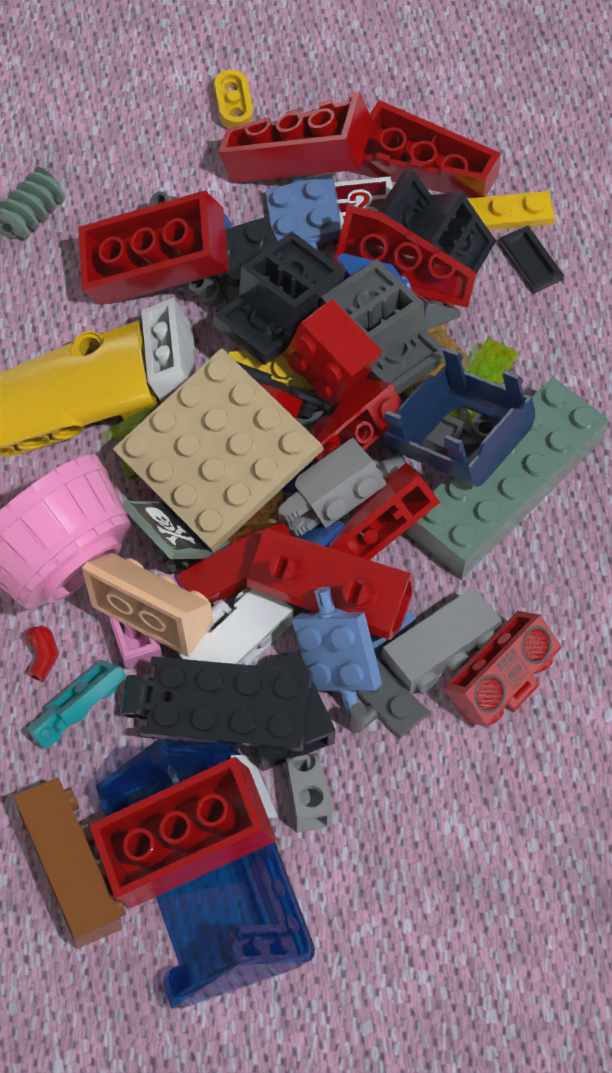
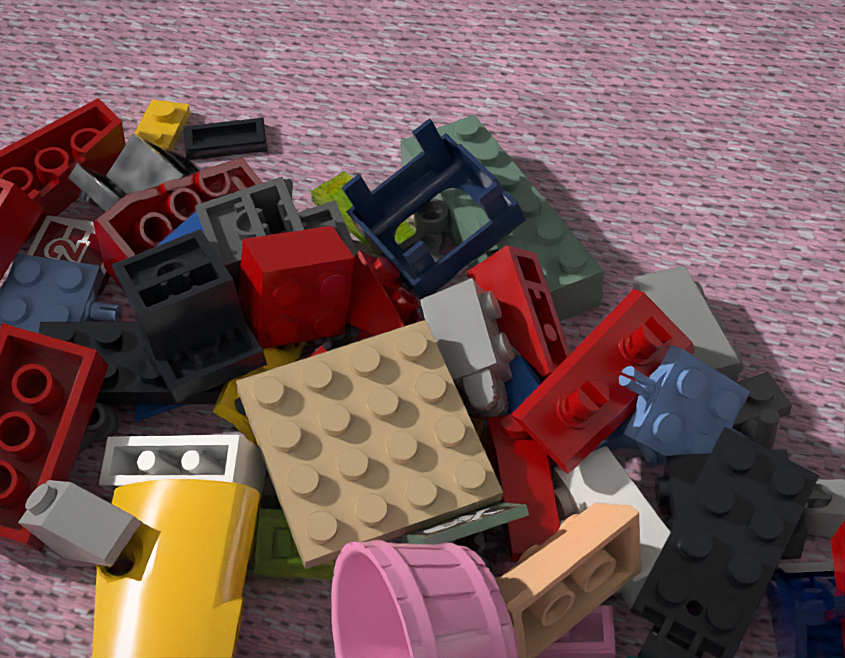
camera: 65 degrees left, 15 degrees down
(96, 308) = (78, 523): none -> light grey slope
(503, 669) = (741, 286): red piece -> none

